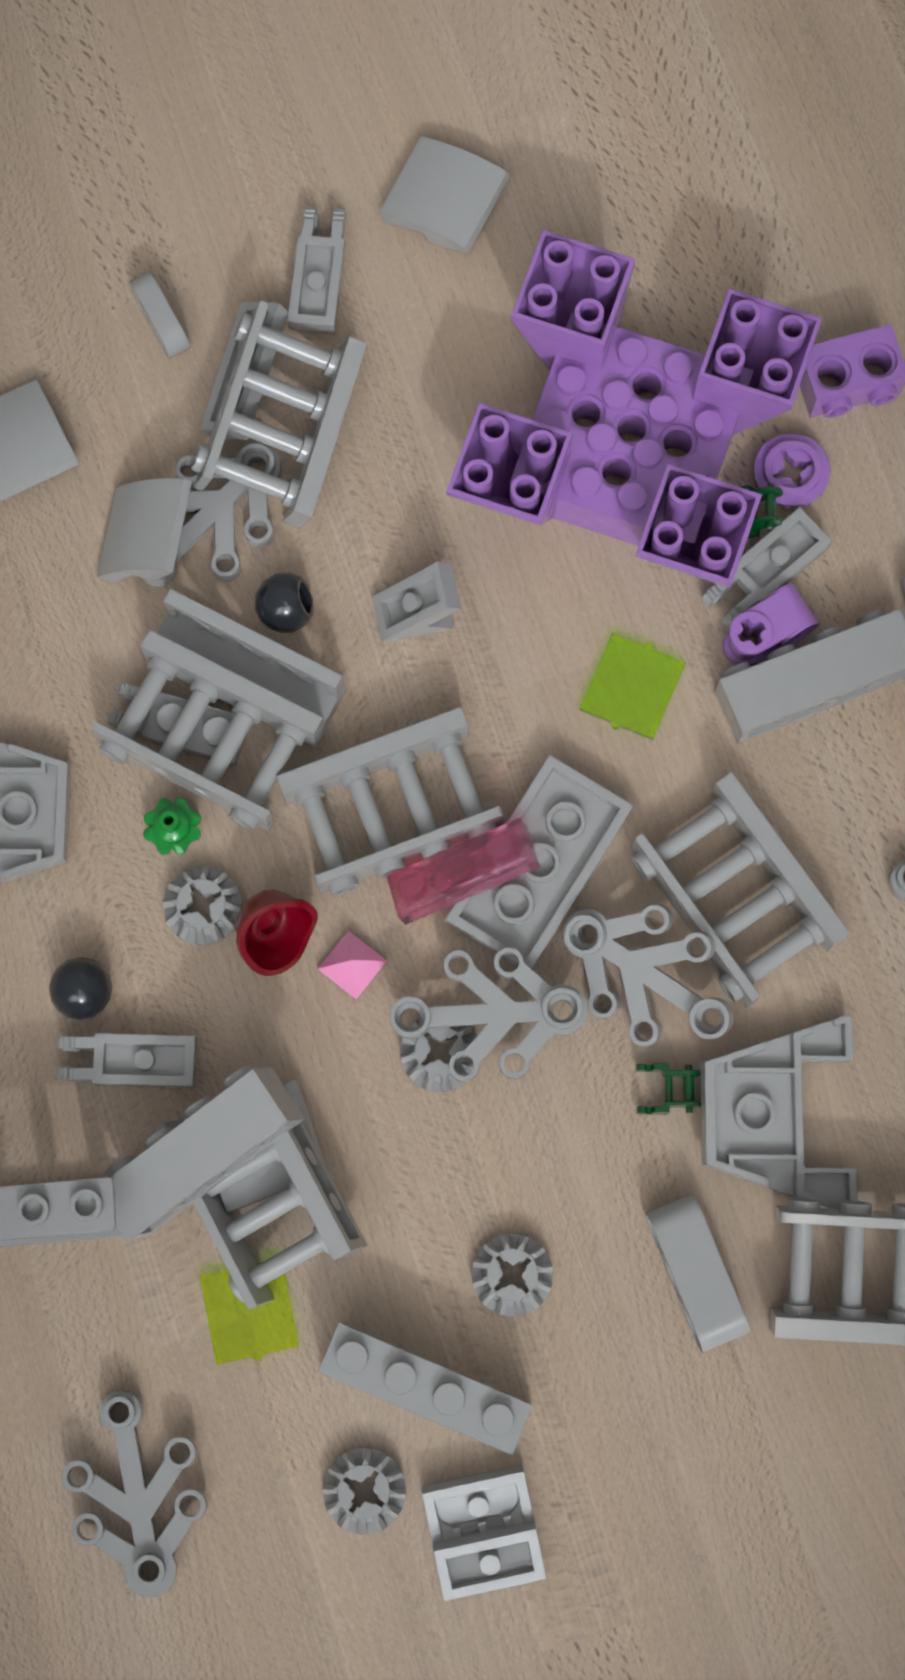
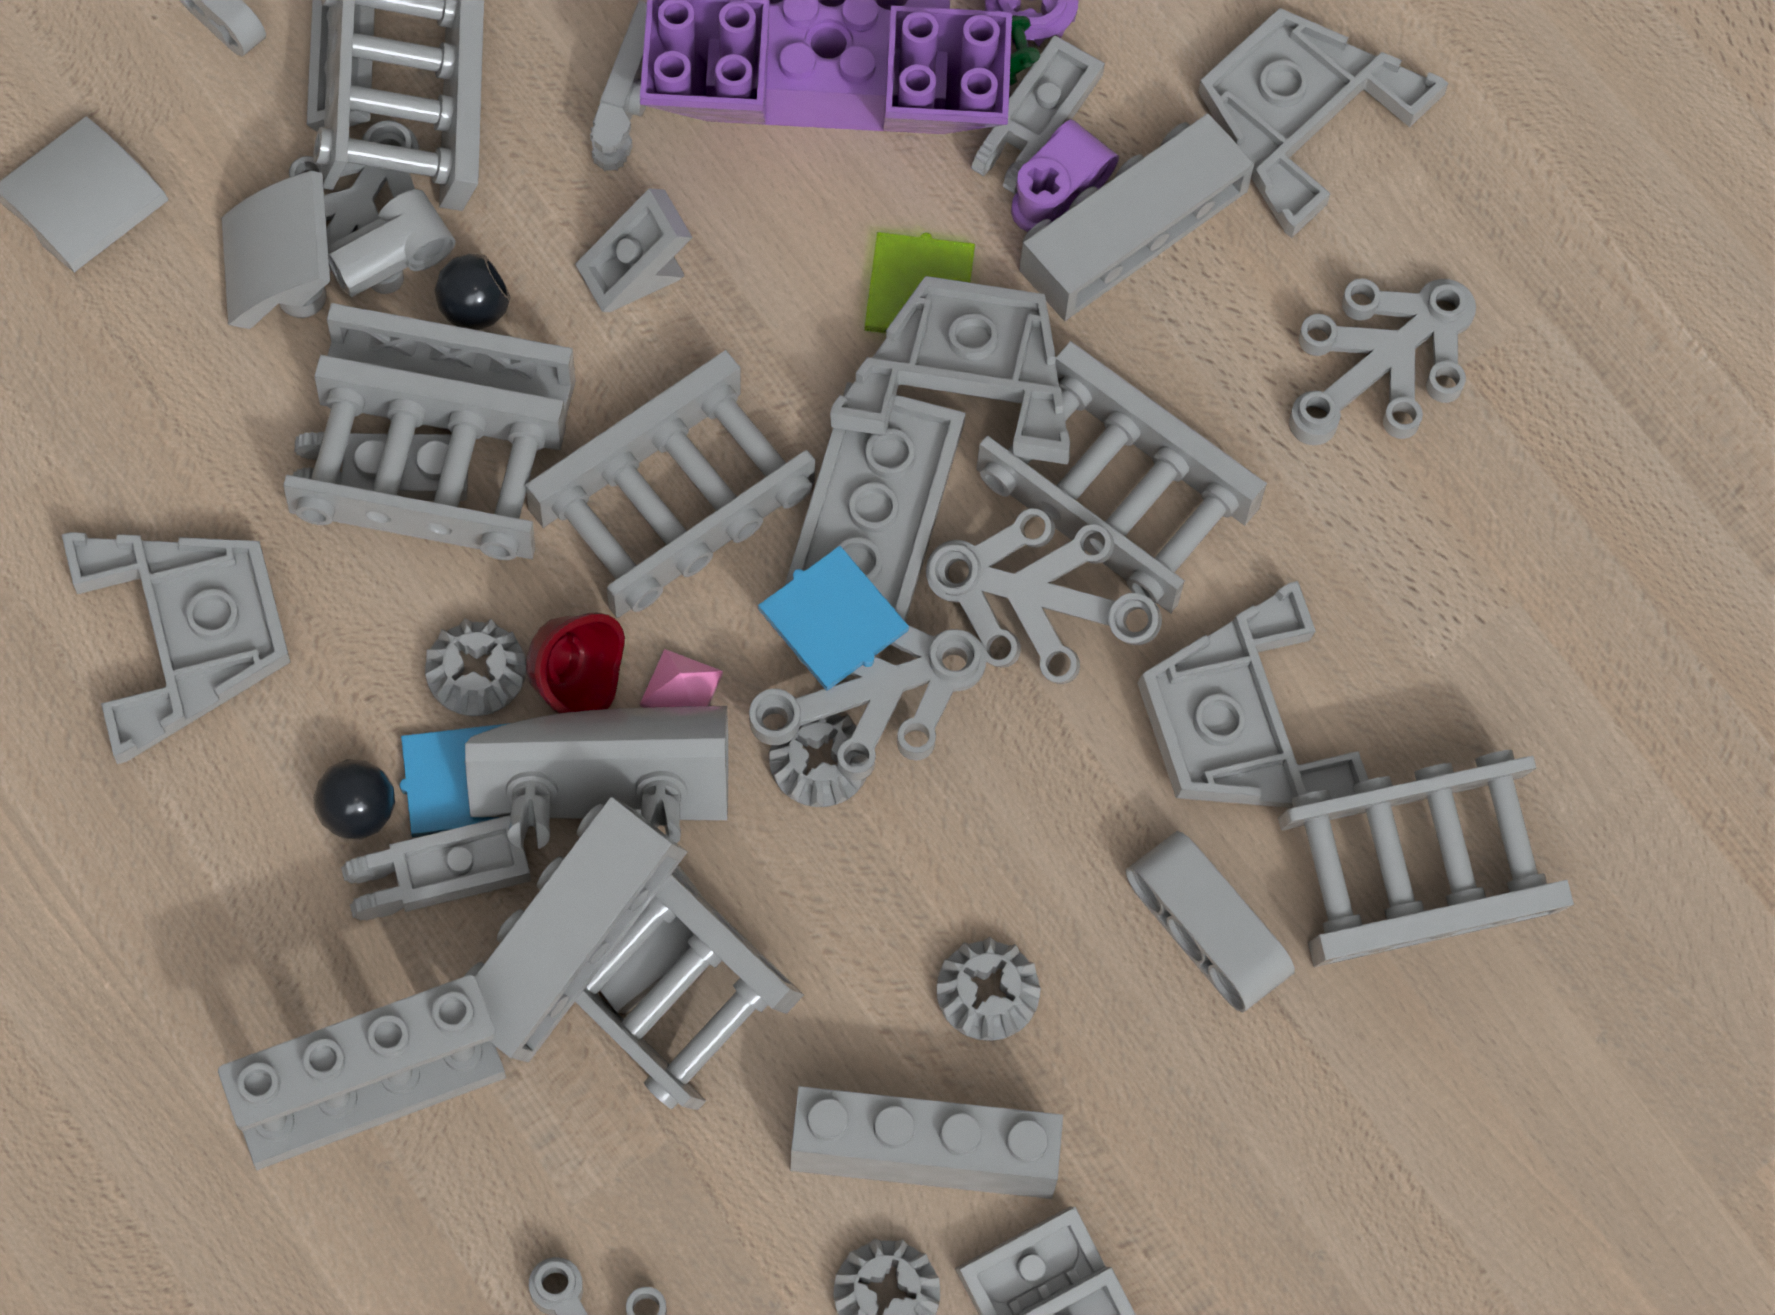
camera: 25 degrees left, 10 degrees down
(167, 991) = (438, 780): none -> dark azure piece
(172, 826) = (411, 583): green plant -> none
(244, 545) = (402, 237): none -> light grey piece
(244, 1332) = (679, 1142): clear neon green piece -> none
(274, 1016) = (653, 759): none -> light grey piece
(428, 499) = (620, 98): none -> light grey hinge
(462, 871) = (784, 538): clear pink plate -> none
(478, 951) = (833, 618): none -> dark azure piece
(654, 751) = (968, 344): none -> light grey wing
(688, 1080) = (1094, 704): dark green piece -> none

